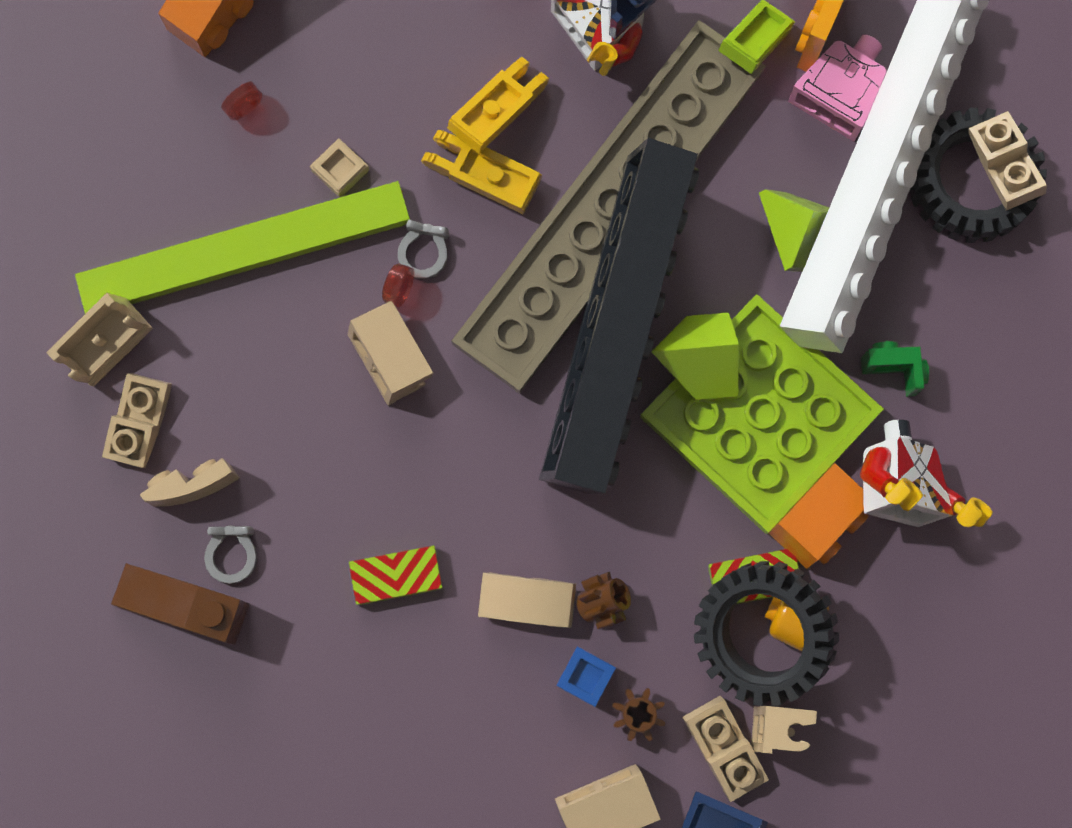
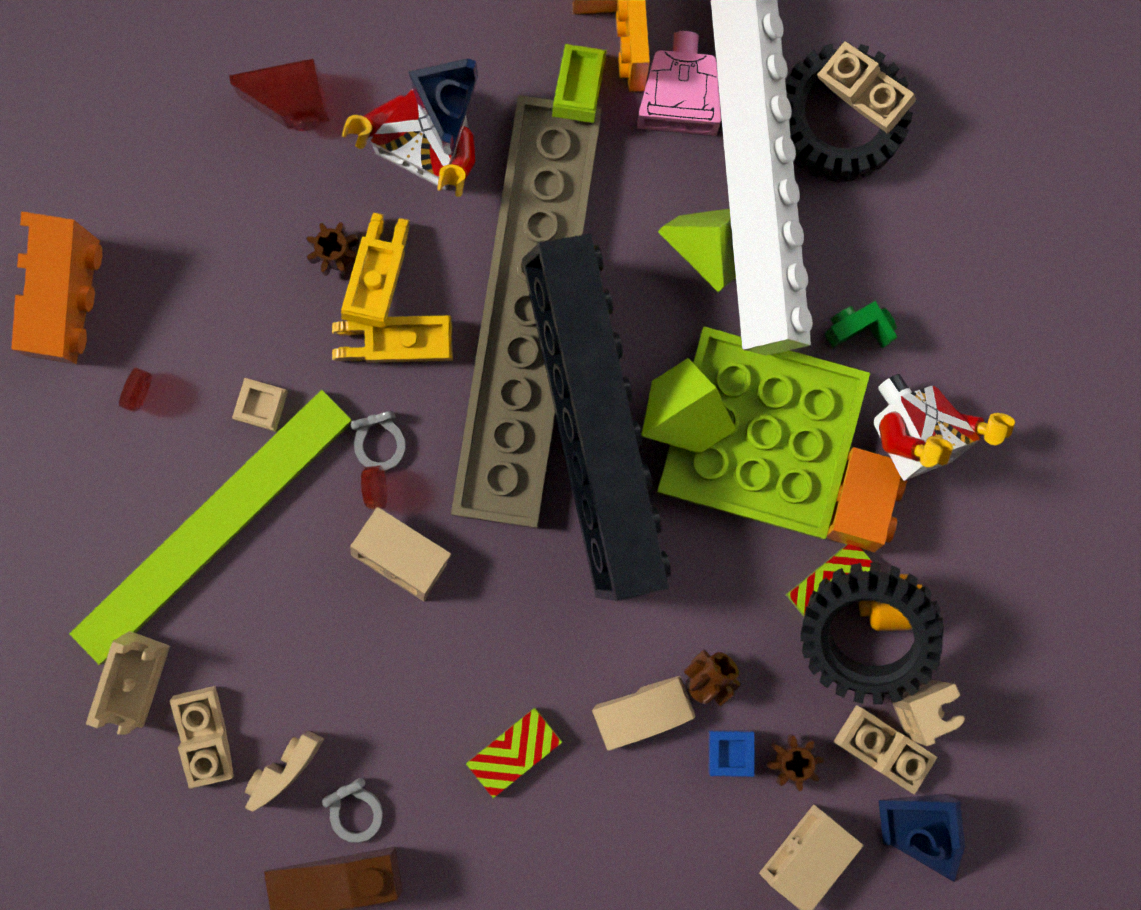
camera: 30 degrees left, 5 degrees up
(472, 58) = (329, 237): none -> reddish brown gear

